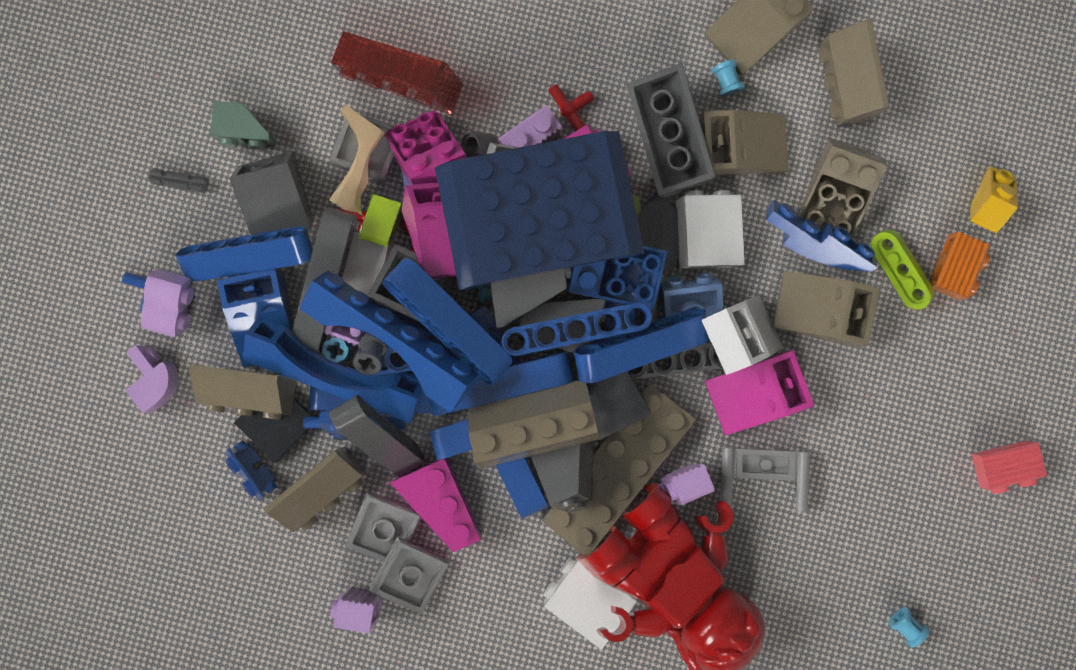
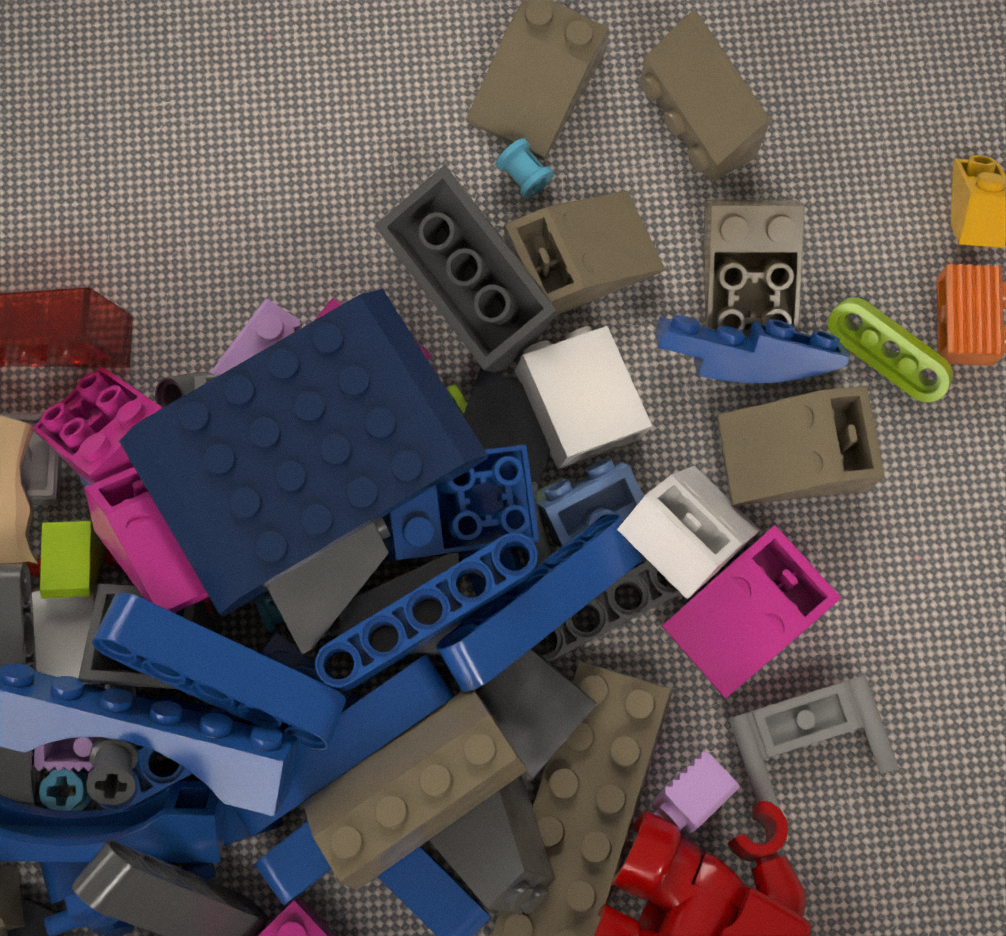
camera: 20 degrees left, 10 degrees down
(569, 109) = (306, 295): red piece -> none

